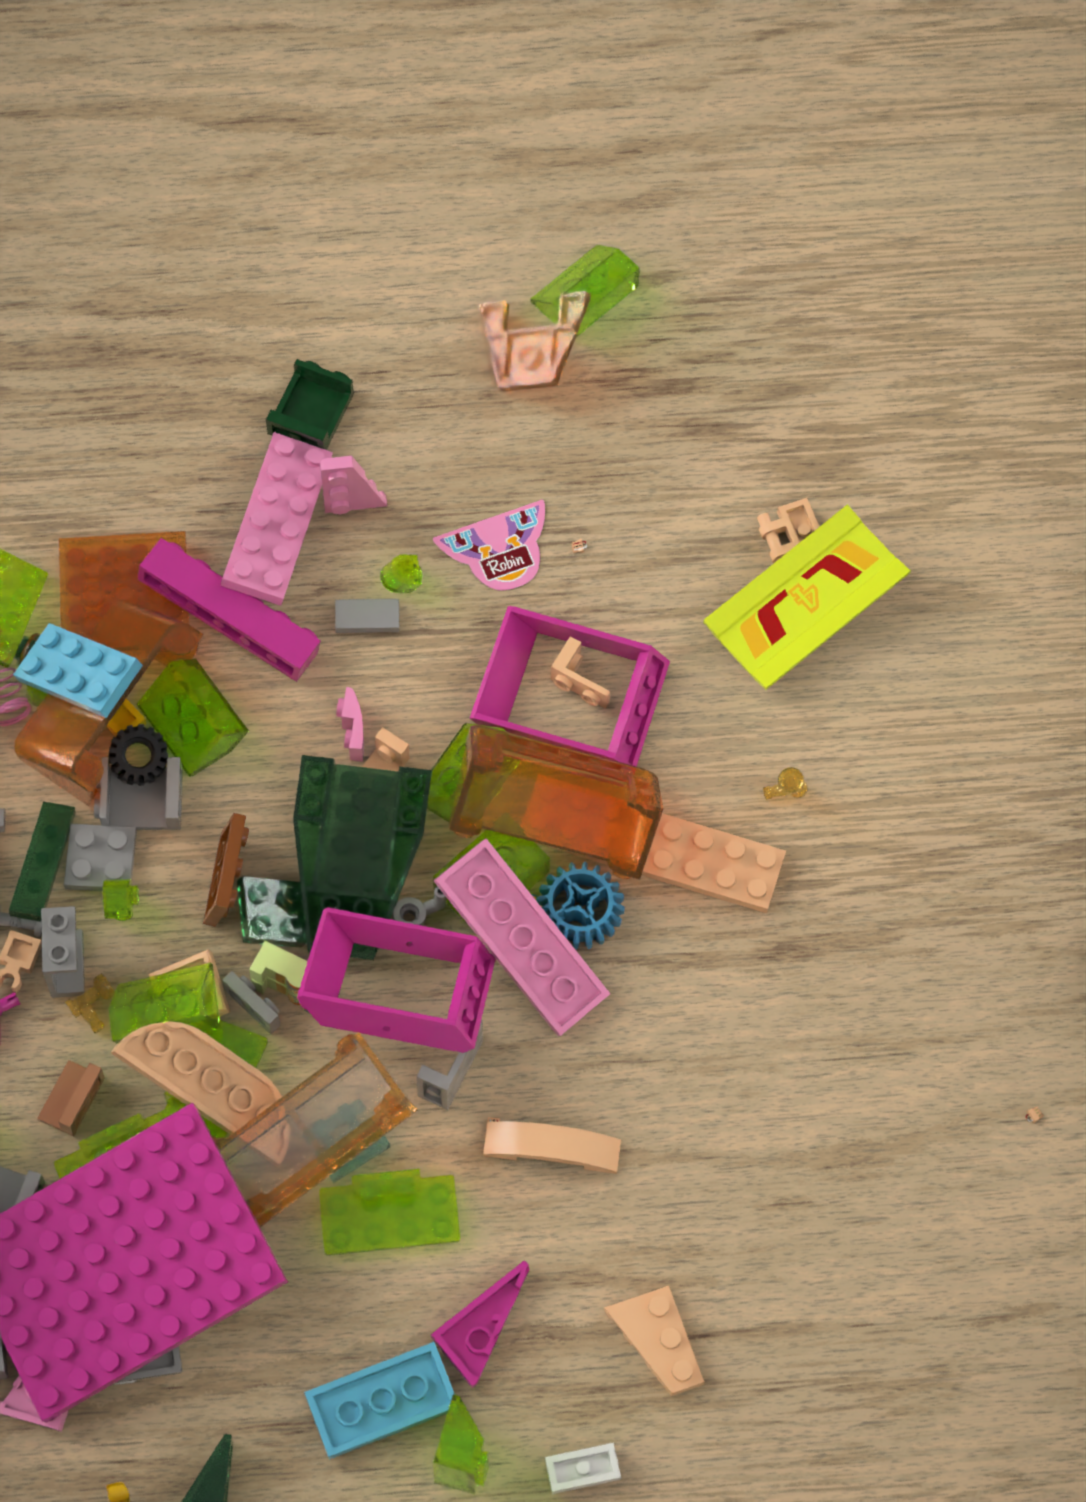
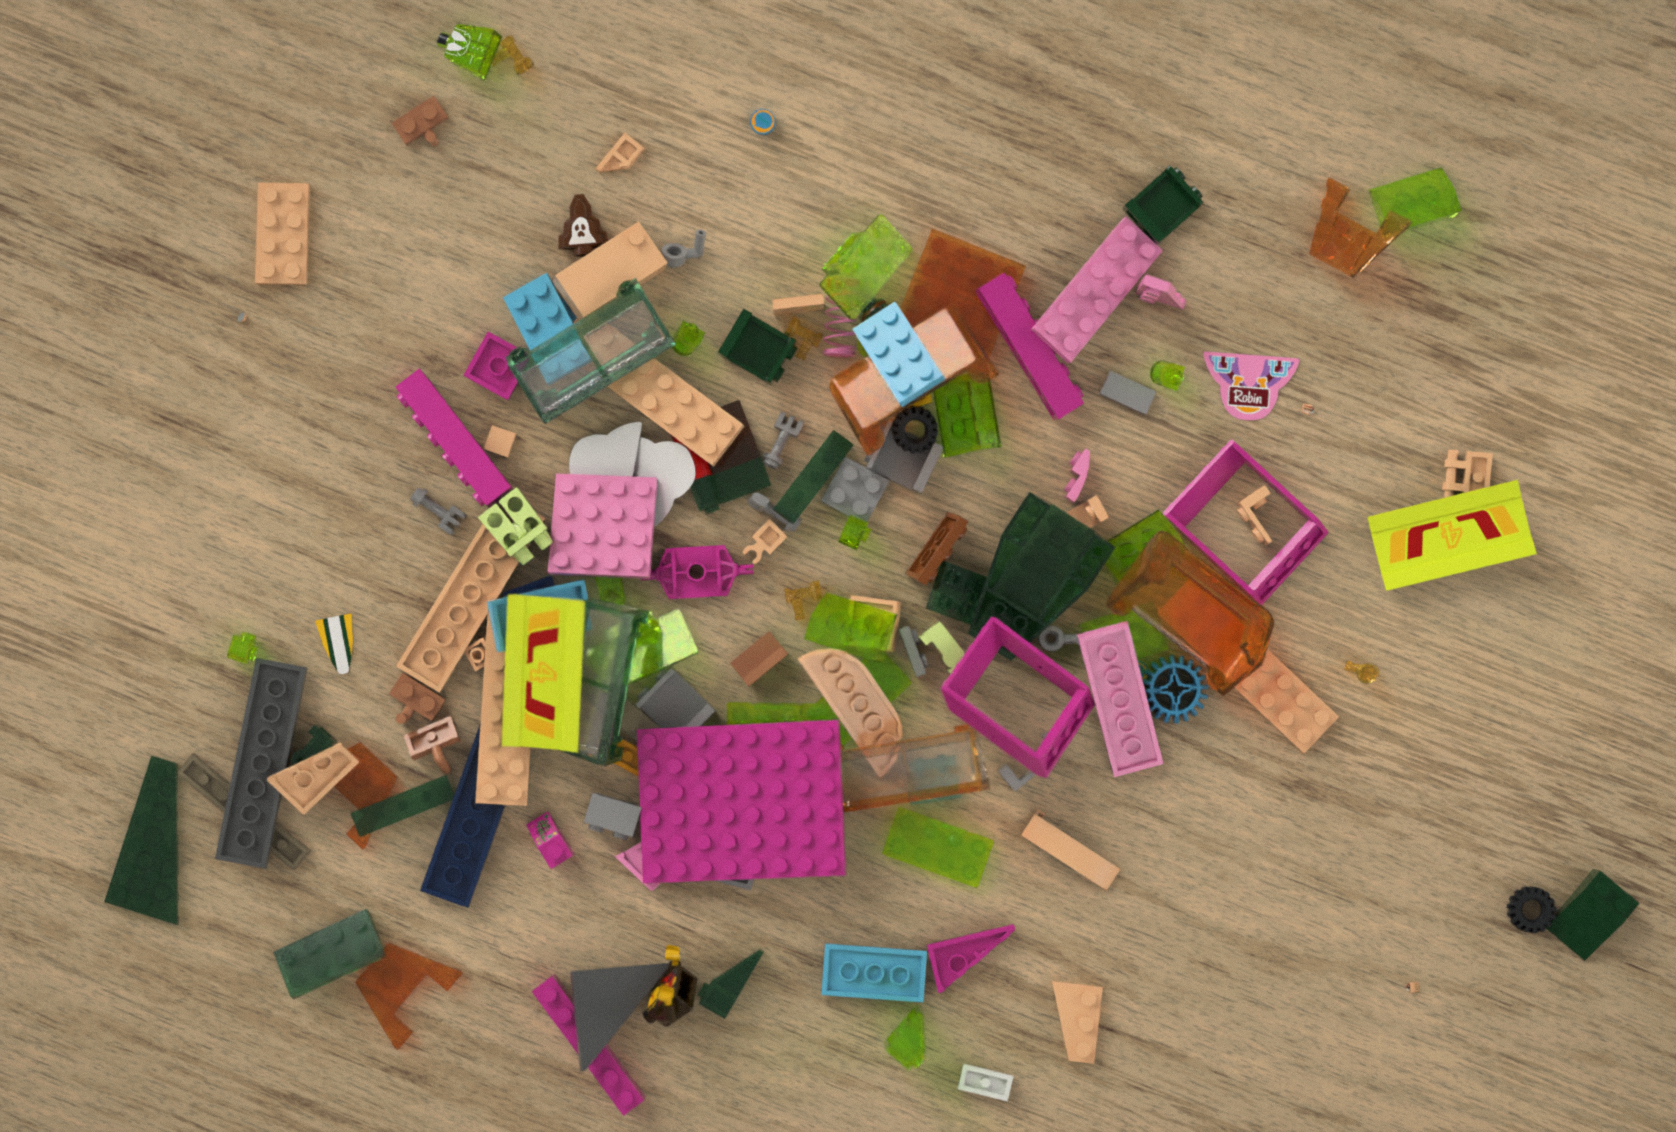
camera: 25 degrees right, 20 degrees up
(62, 952) = (797, 557): light grey panel -> none

